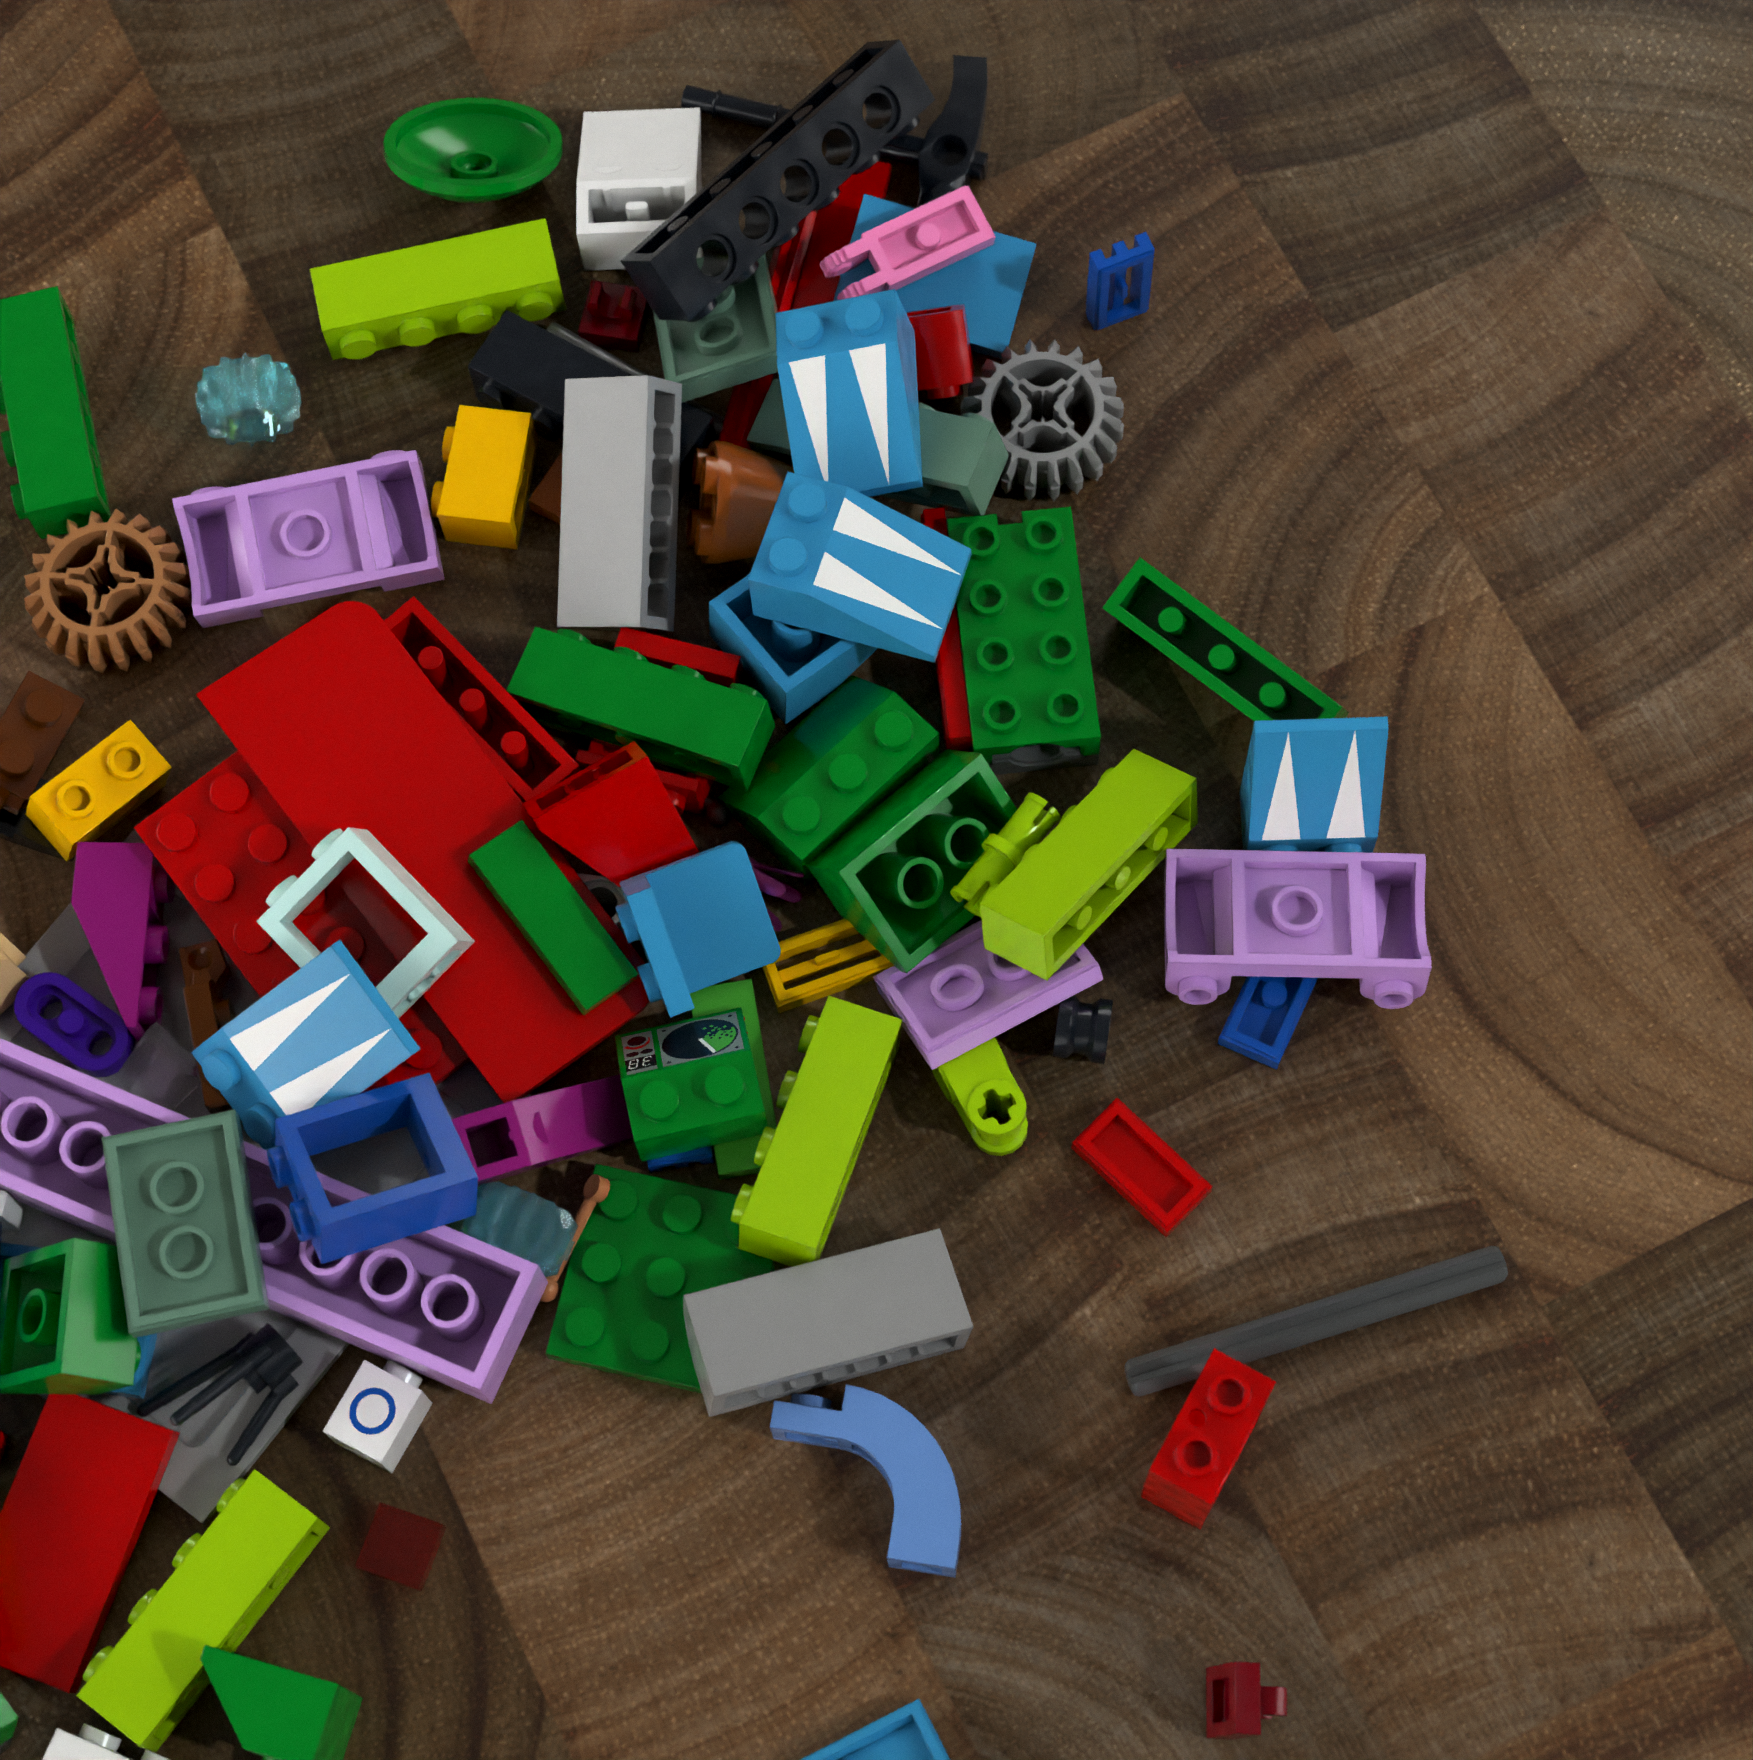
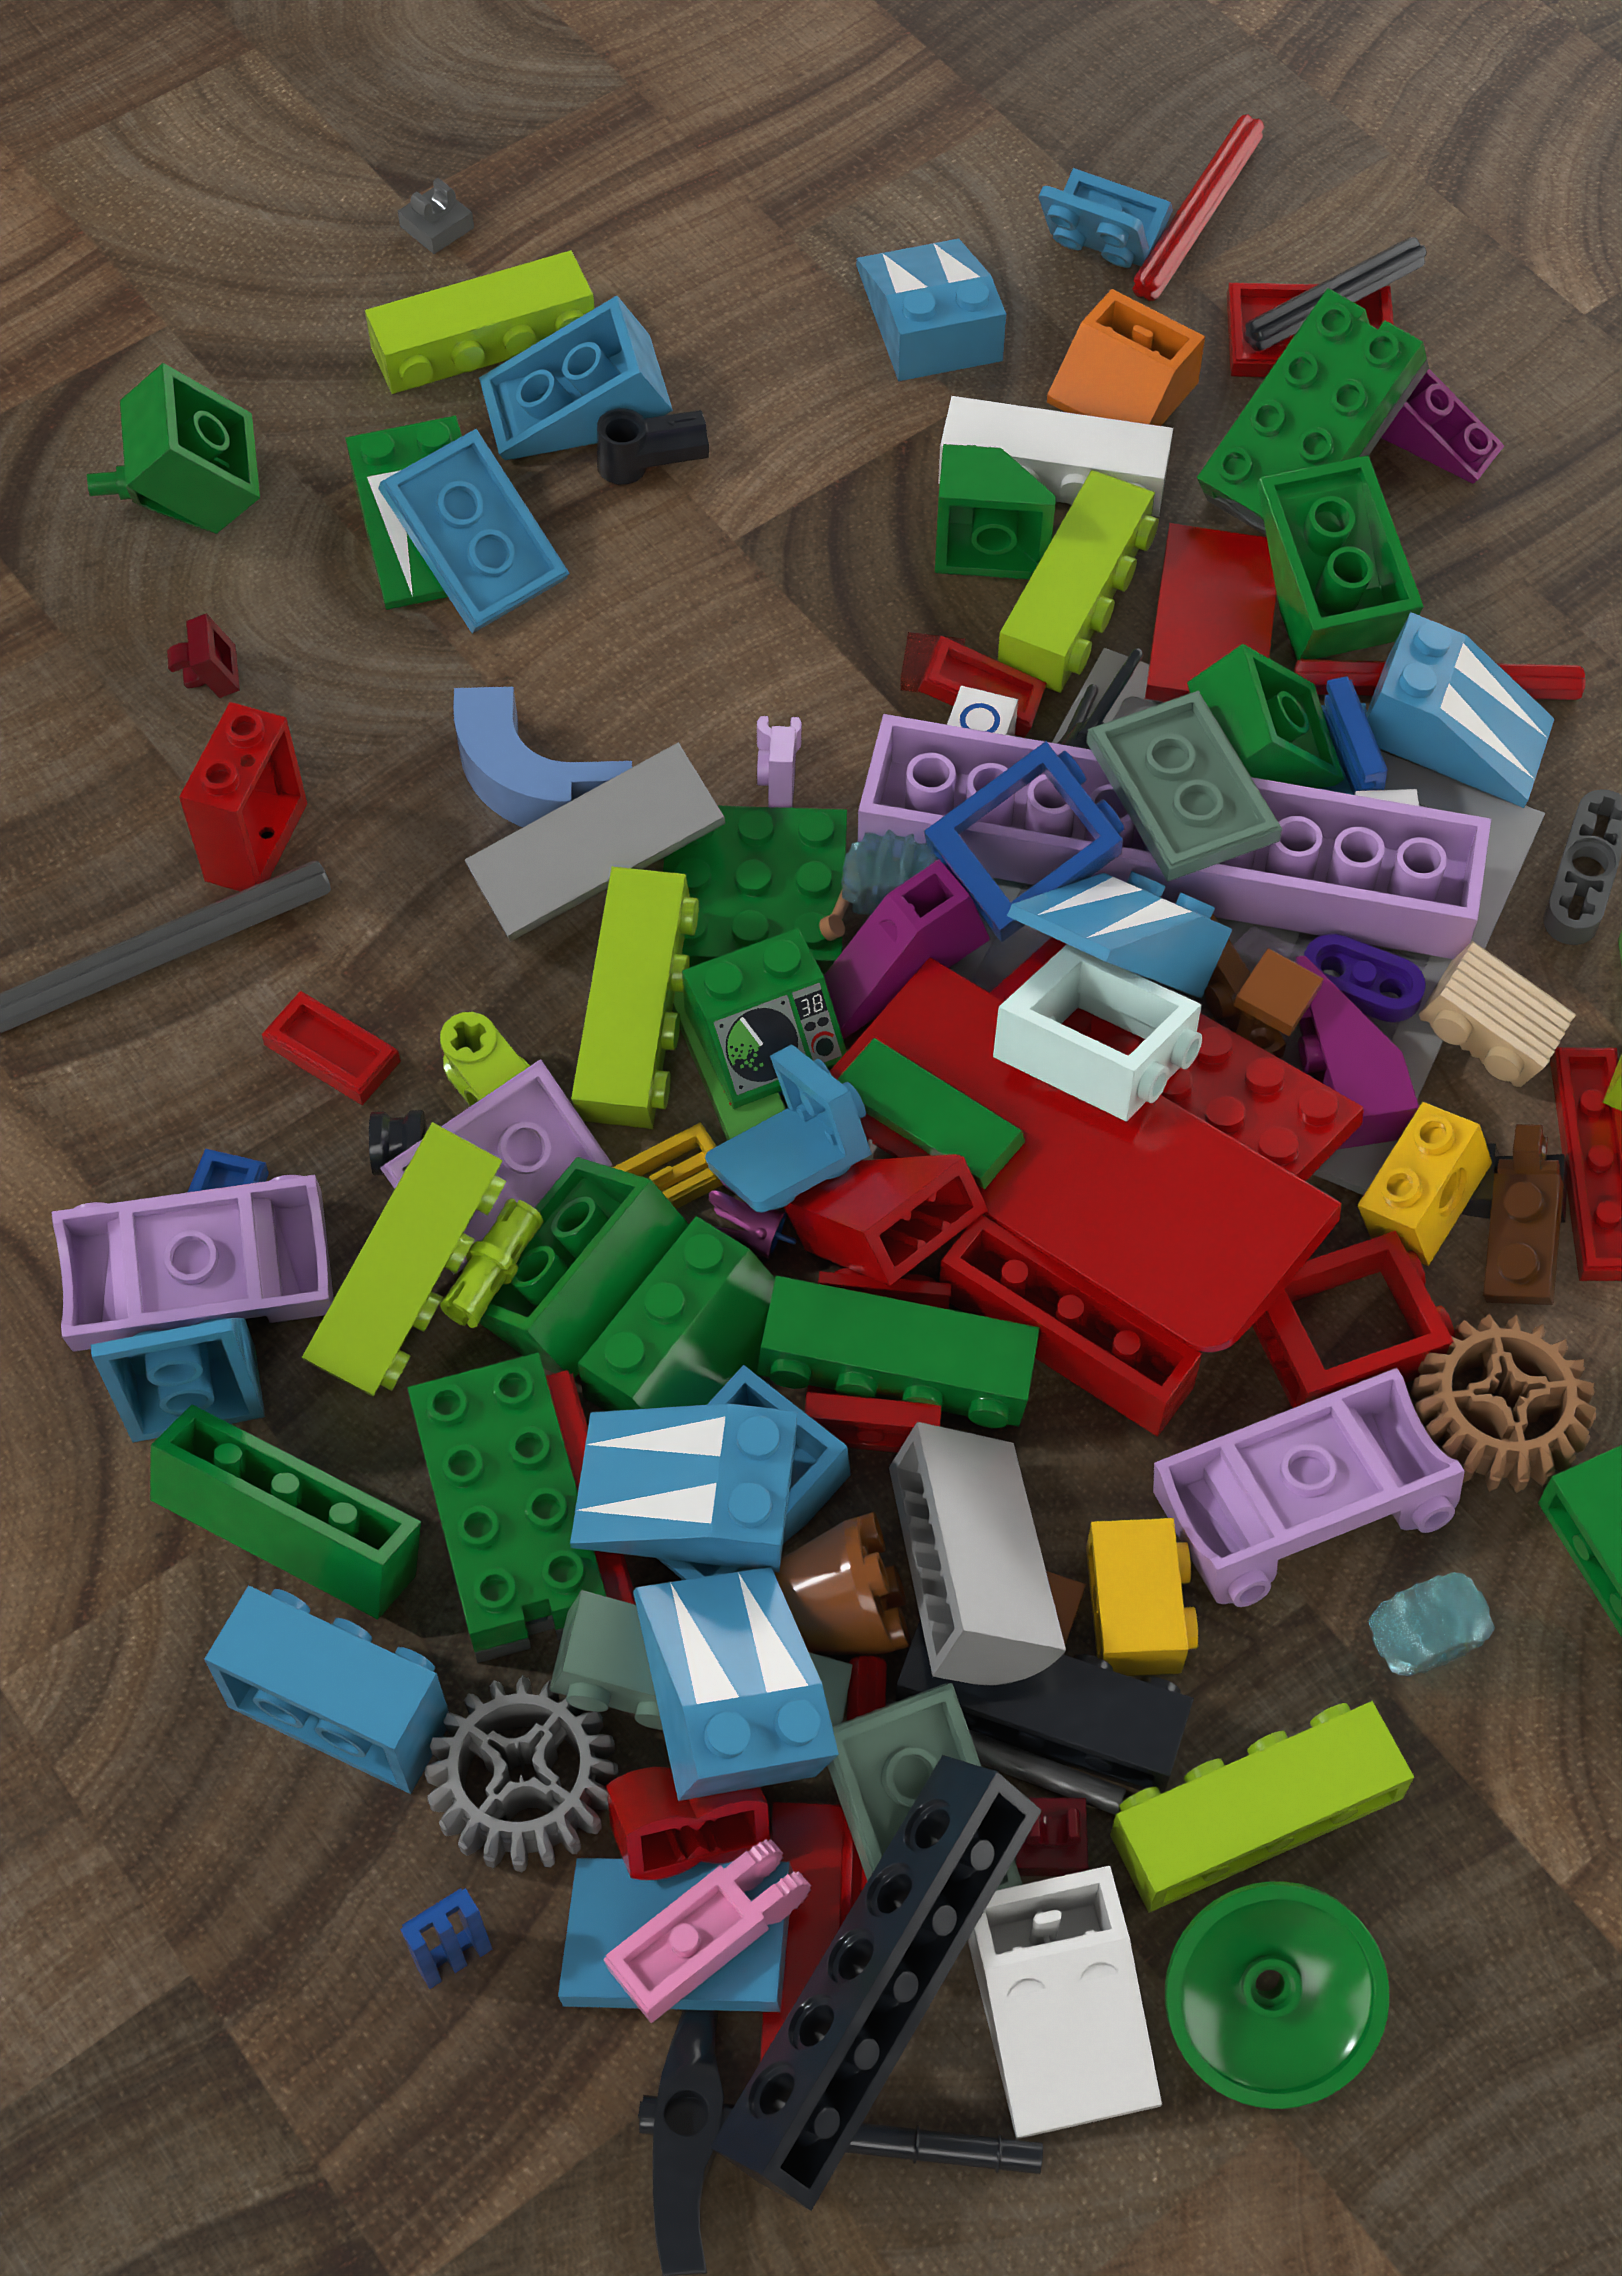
camera: 165 degrees right, 10 degrees down
(154, 643) = (1292, 1351): none -> red window
(169, 977) = (1278, 992): none -> dark orange tile
(355, 1490) = (958, 666): none -> red tile
(606, 1415) = (777, 760): none -> lavender plate
(1196, 488) = (329, 1686): none -> dark azure brick

